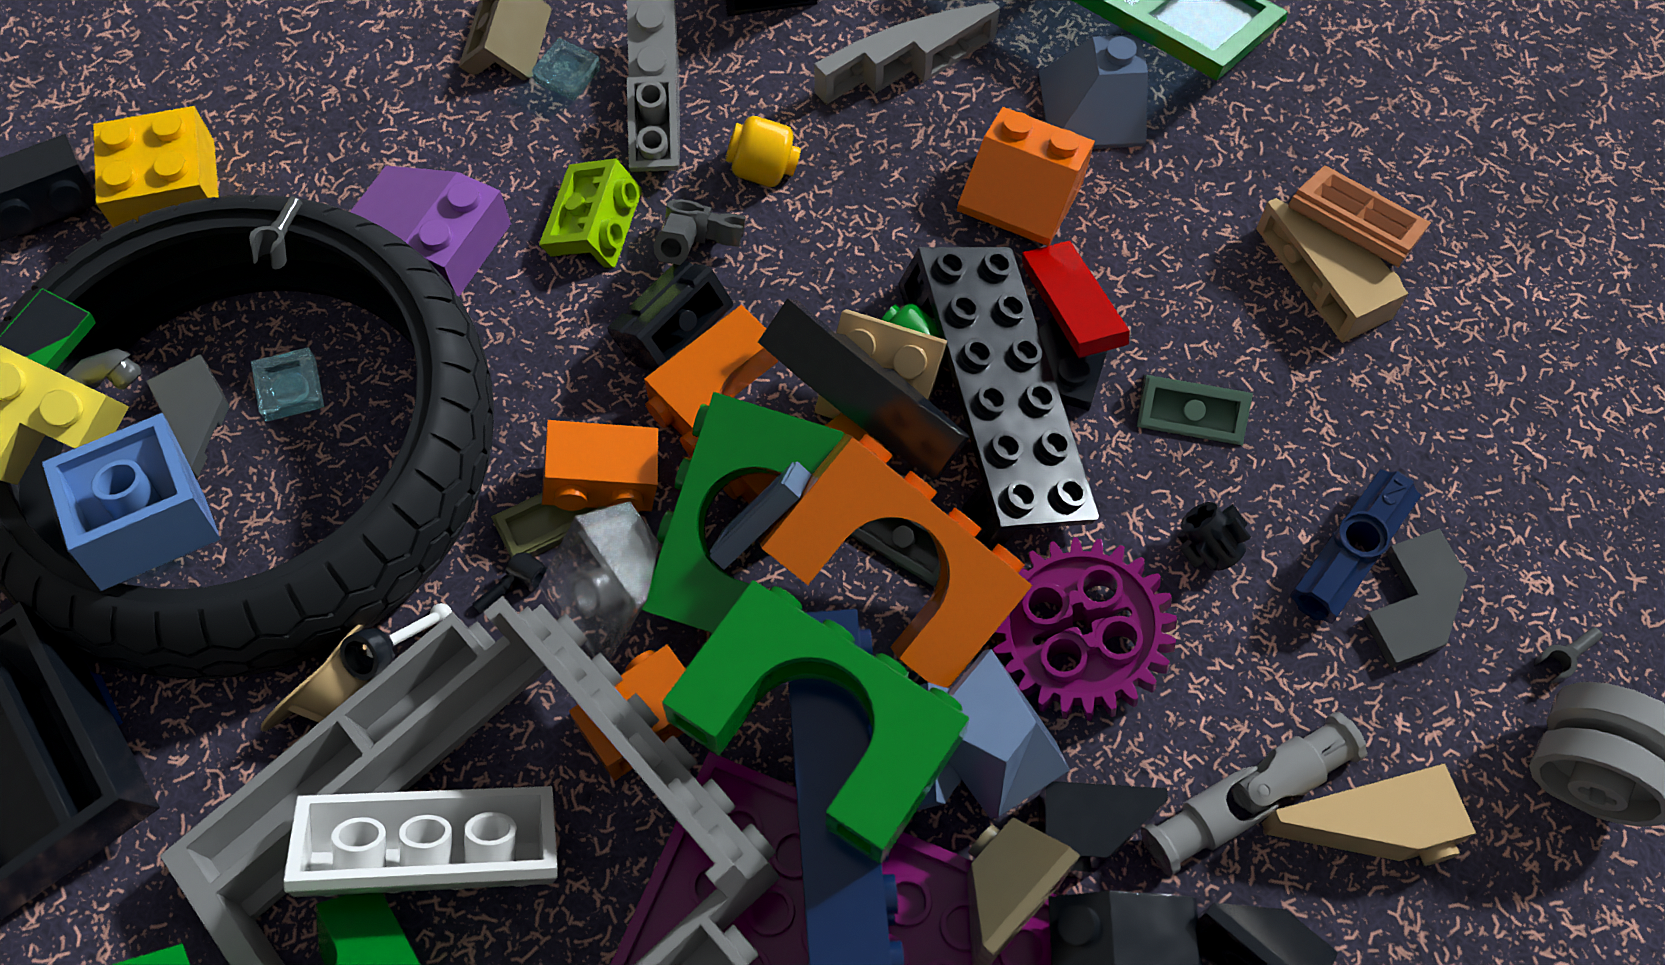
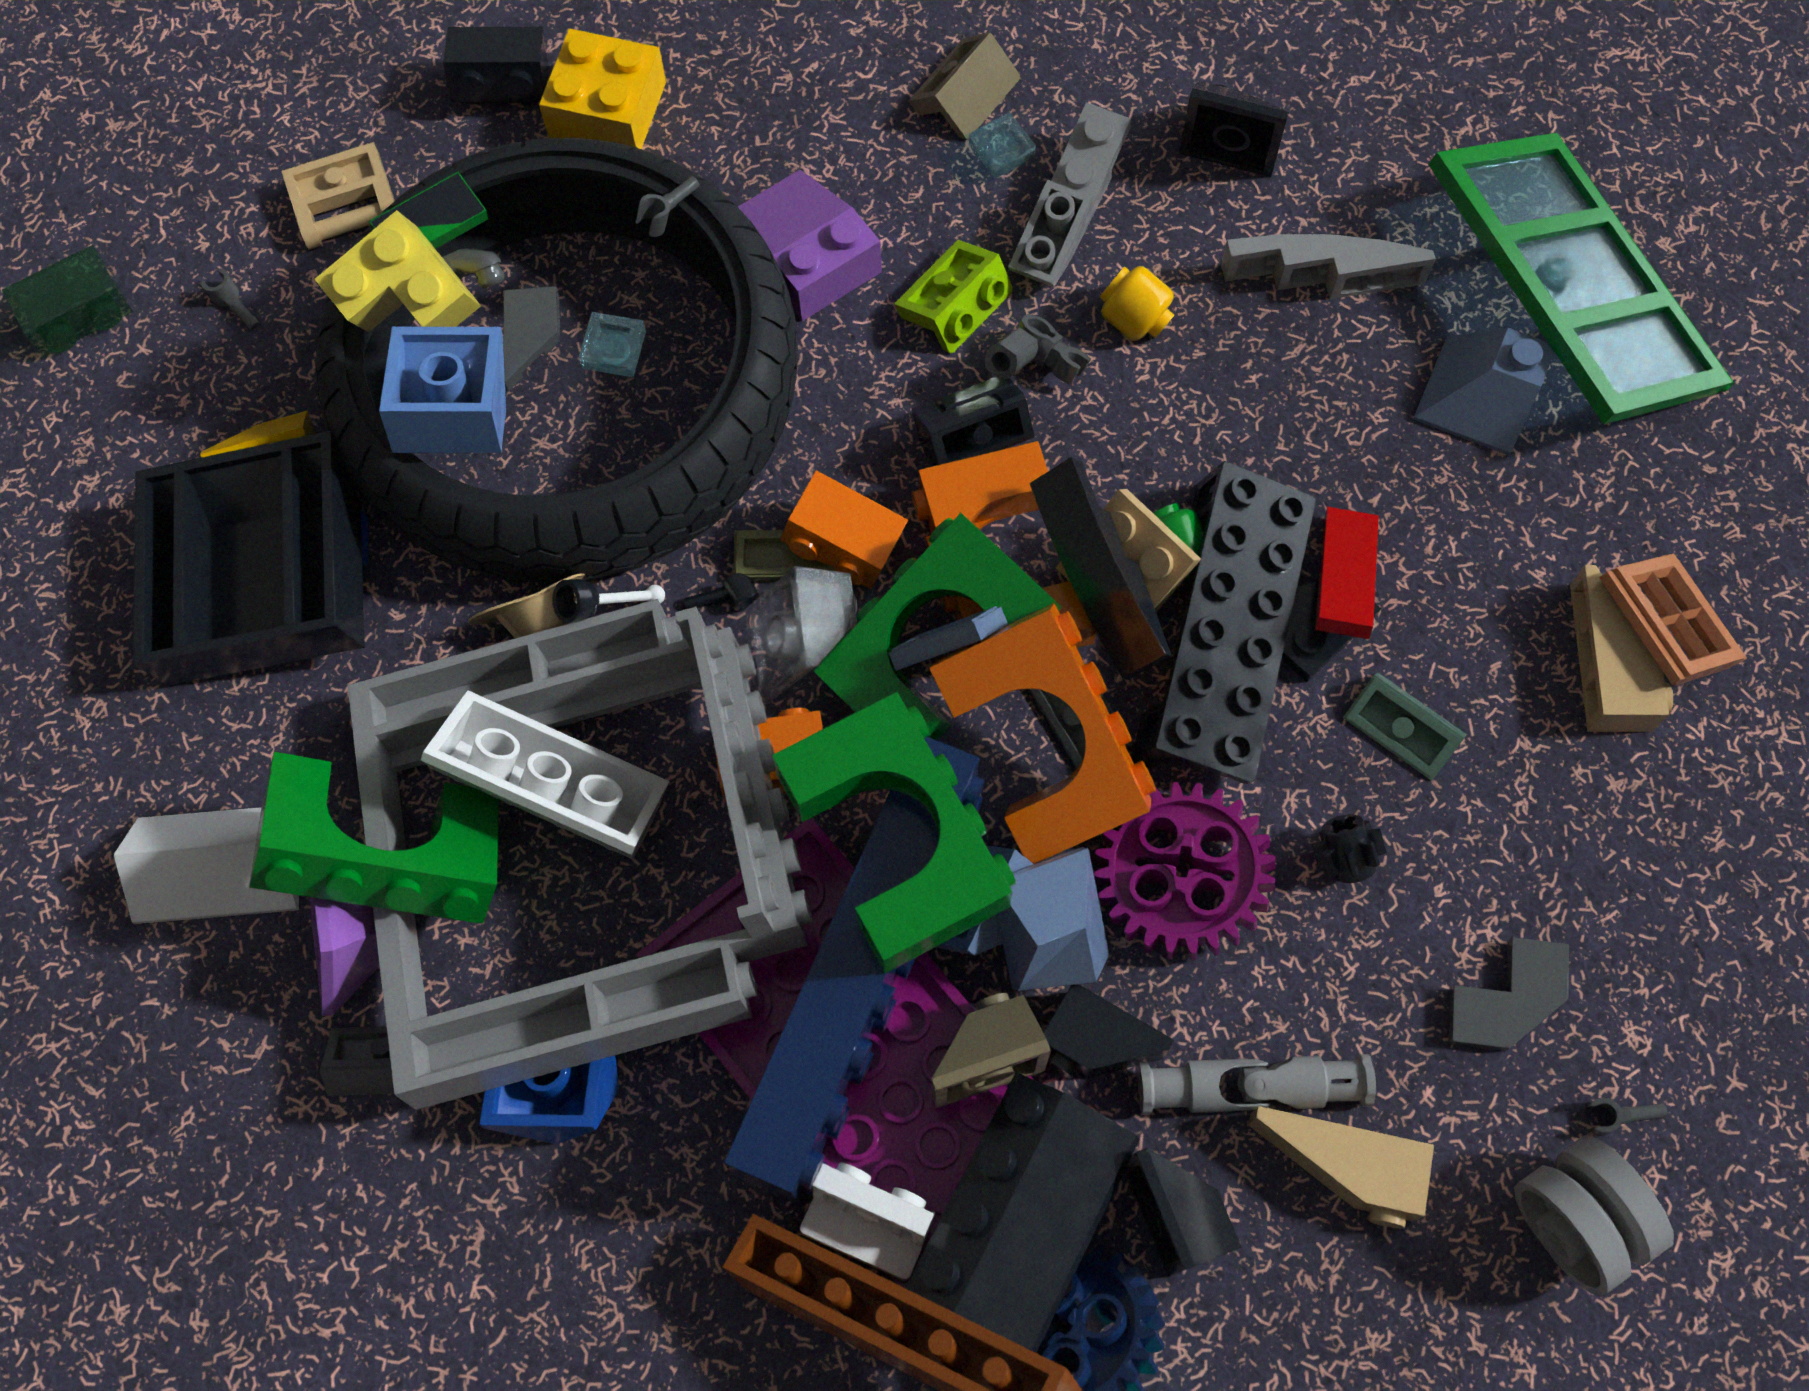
camera: 30 degrees right, 5 degrees up
(1026, 176) = (1368, 436): orange slope -> none
(1339, 566) = (1505, 906): dark blue piece -> none

